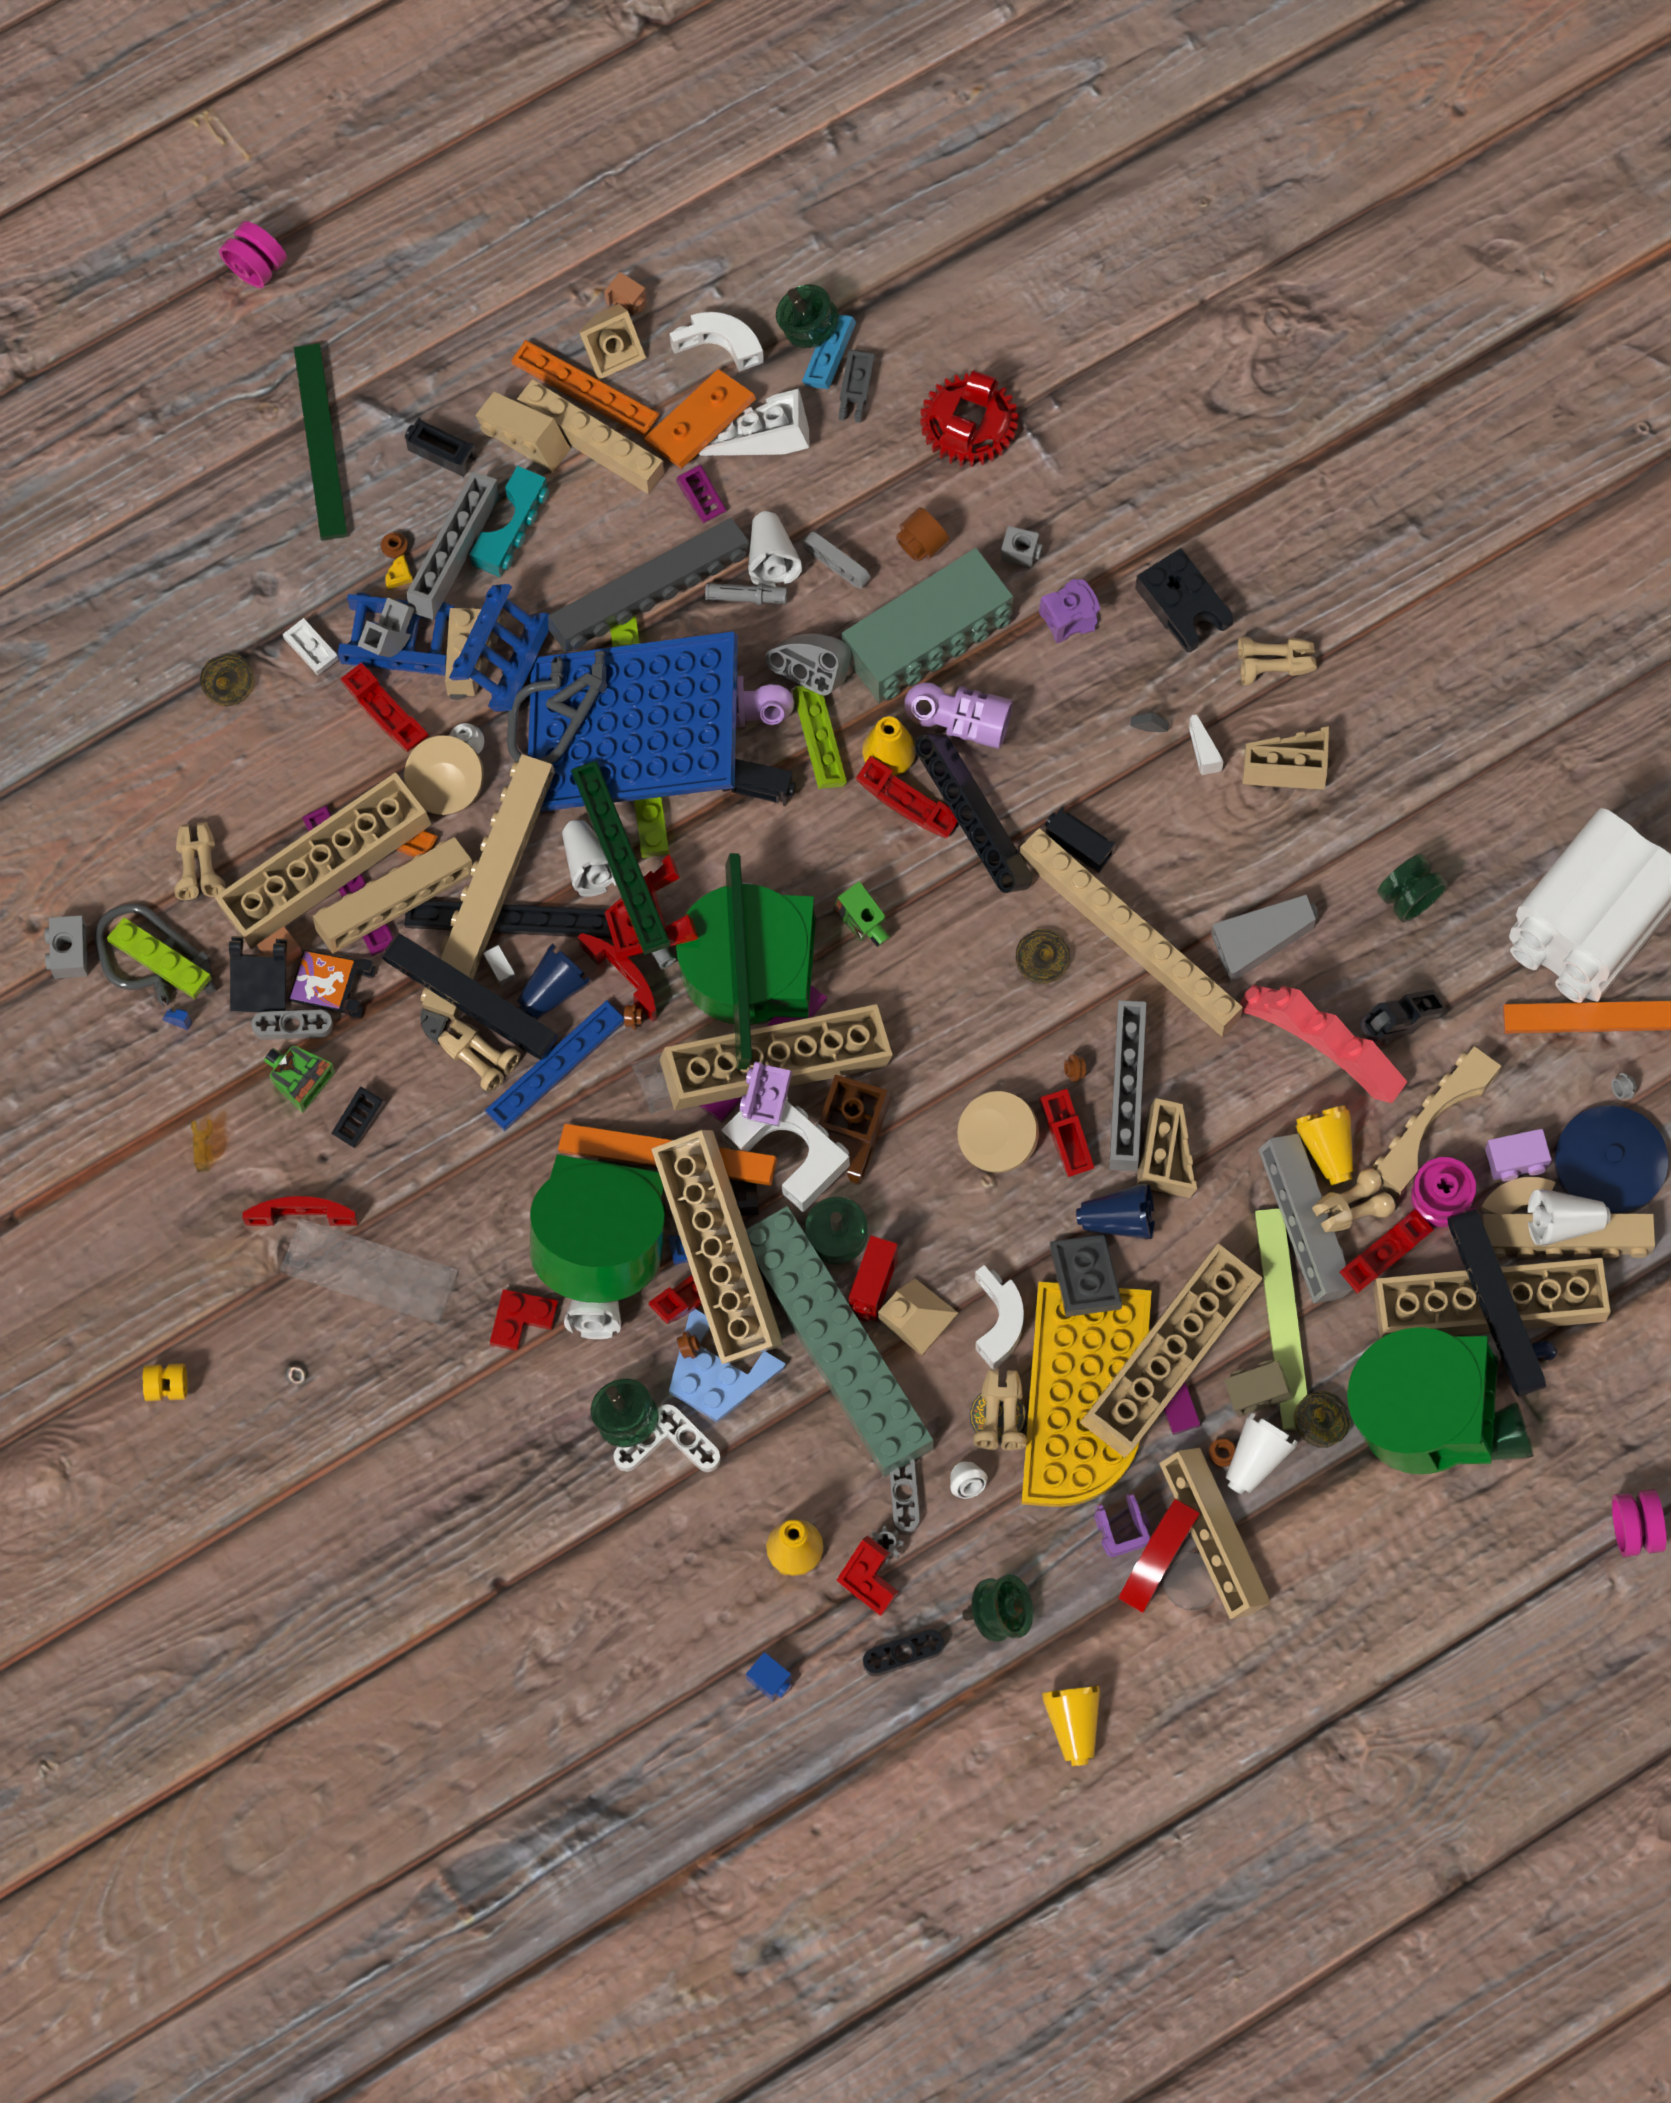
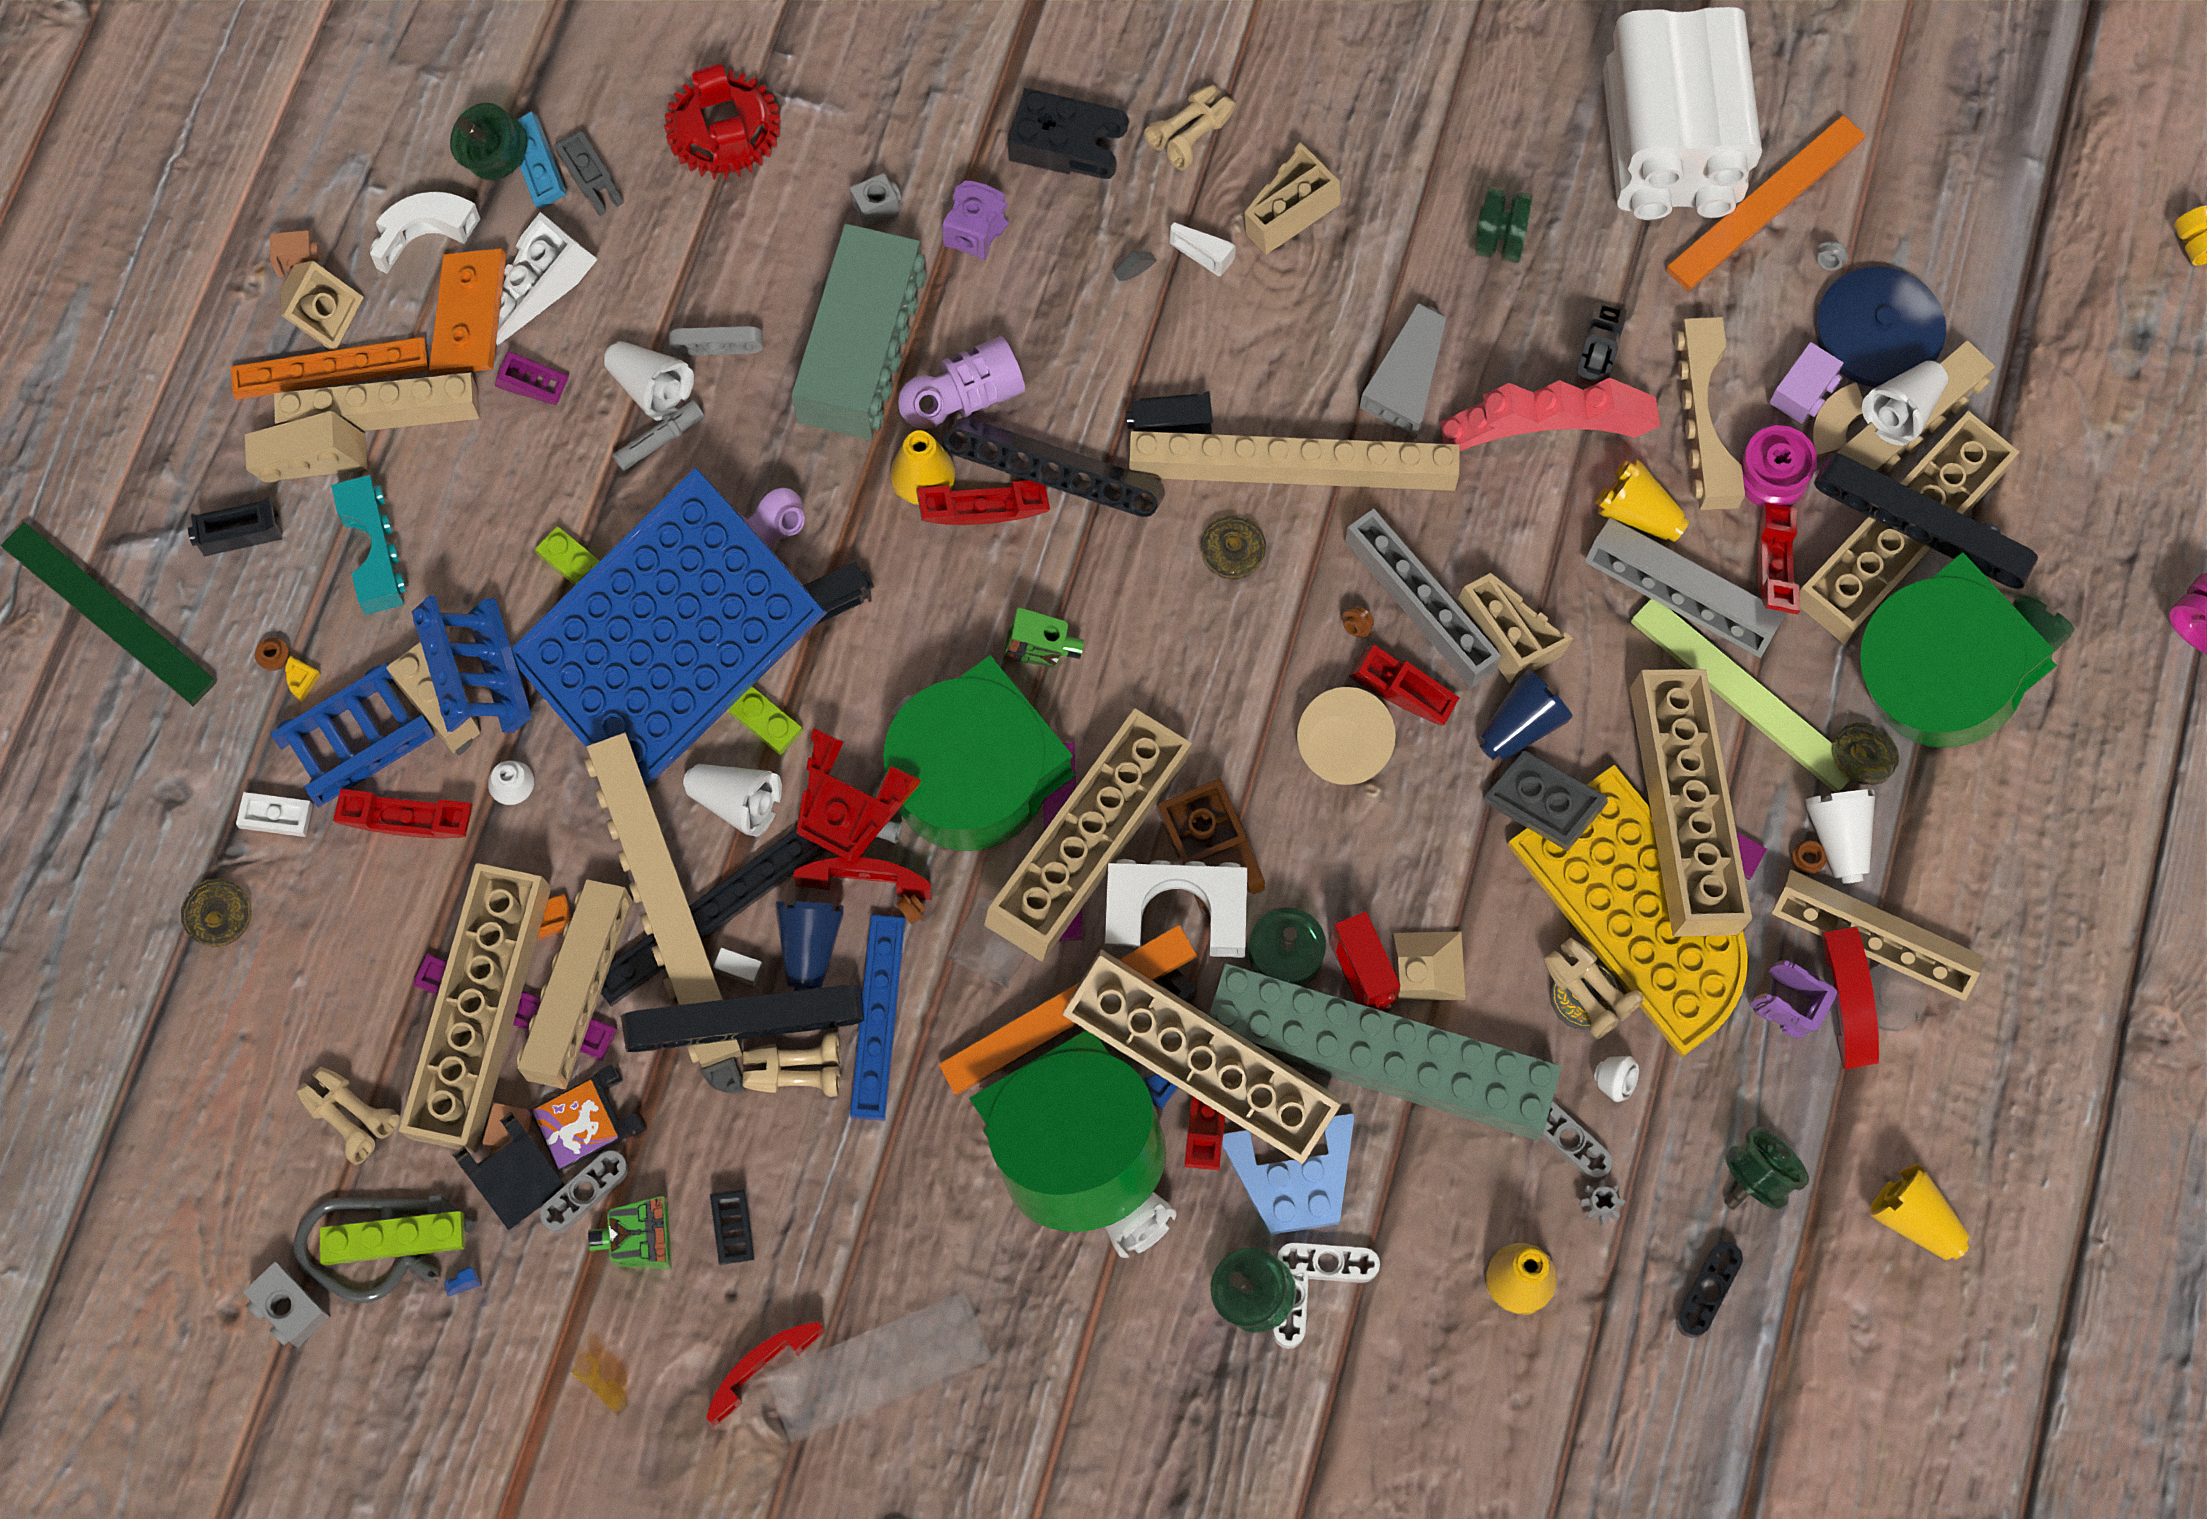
camera: 45 degrees left, 0 degrees up
(389, 634) = (348, 738): light grey brick -> none
(444, 775) = (521, 828): tan piece -> none
(452, 545) = (336, 607): light grey brick -> none
(519, 1310) = (1056, 1284): red plate -> none
(597, 684) = (597, 624): dark grey piece -> none
(620, 858) = (774, 766): dark green tile -> none
(648, 585) = (560, 499): dark grey brick -> none
(688, 1345) = (1253, 1173): dark orange plate -> none
(738, 961) = (981, 770): dark green tile -> none
(765, 1094) = (1122, 871): lavender bracket -> none
(769, 1677) = (1616, 1422): blue brick -> none
(811, 661) = (780, 436): light grey beam -> none
(819, 738) = (849, 511): lime plate -> none
(862, 1579) = (1611, 1252): red plate -> none
(921, 535) = (777, 256): dark orange piece -> none
(1004, 1337) = (1515, 897): white arch -> none
(1258, 1388) = (1789, 772): dark tan brick -> none
(1366, 1185) = (1706, 551): tan piece -> none

